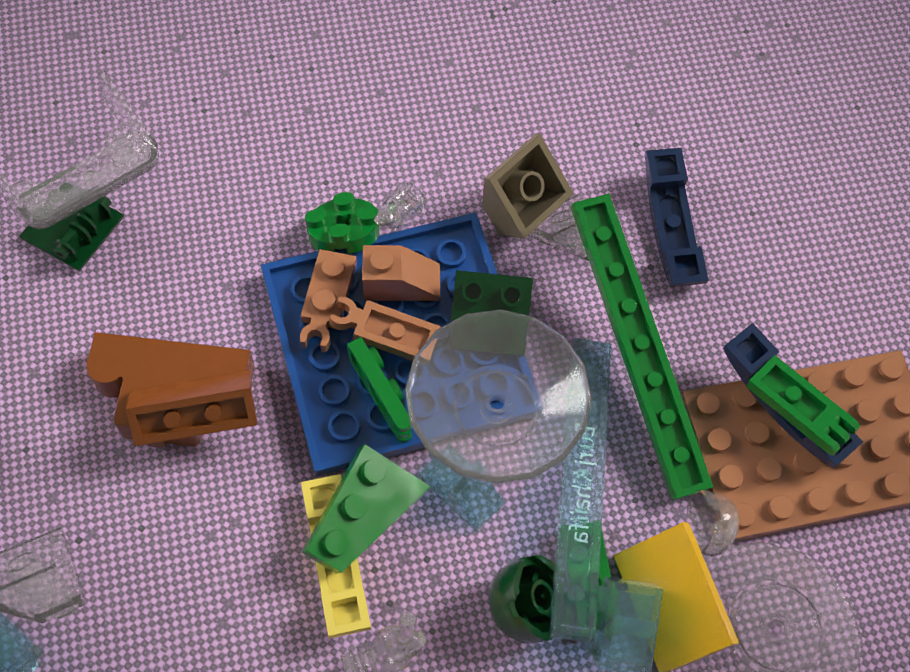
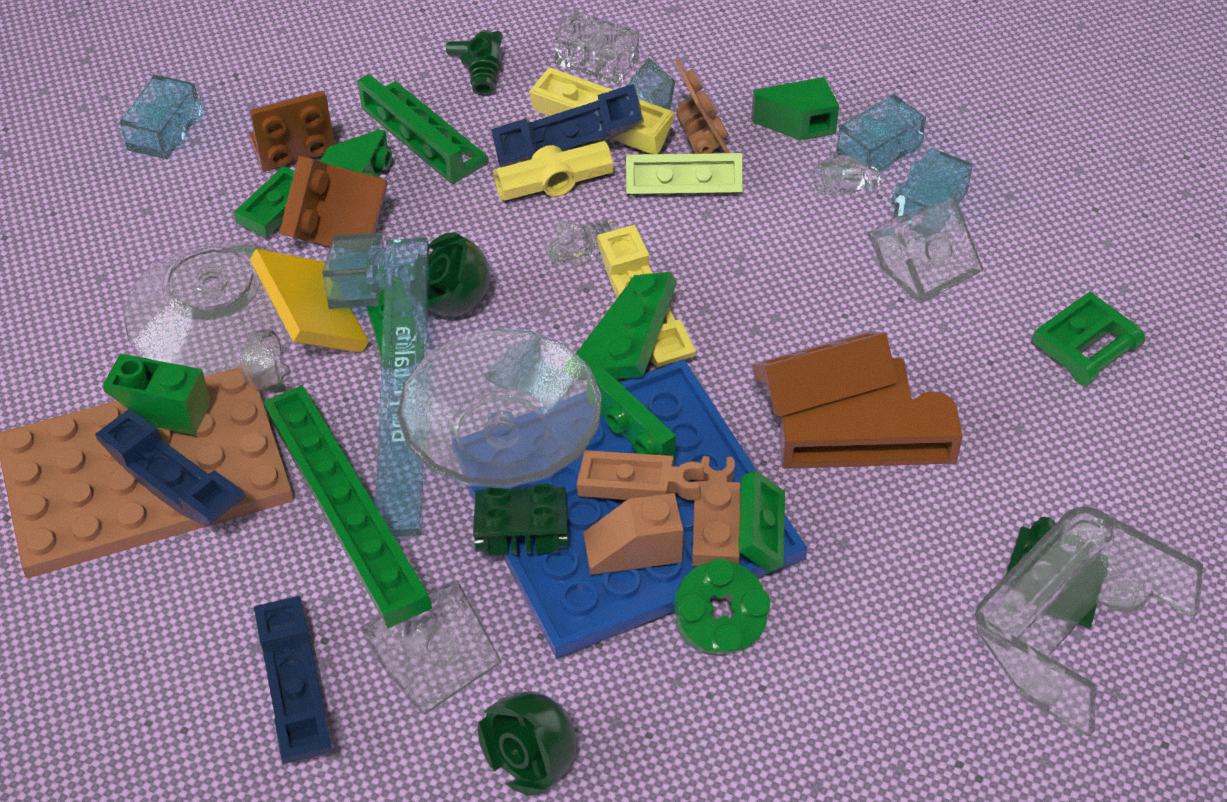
camera: 175 degrees right, 15 degrees down
(292, 274) = (762, 521): none -> green plate
(401, 208) = (652, 617): clear animal -> none
(495, 138) = (529, 740): none -> dark green cylinder
(524, 189) = (493, 661): dark tan slope -> none
(803, 405) = (160, 446): green hinge -> none
(812, 476) = (160, 392): none -> green slope

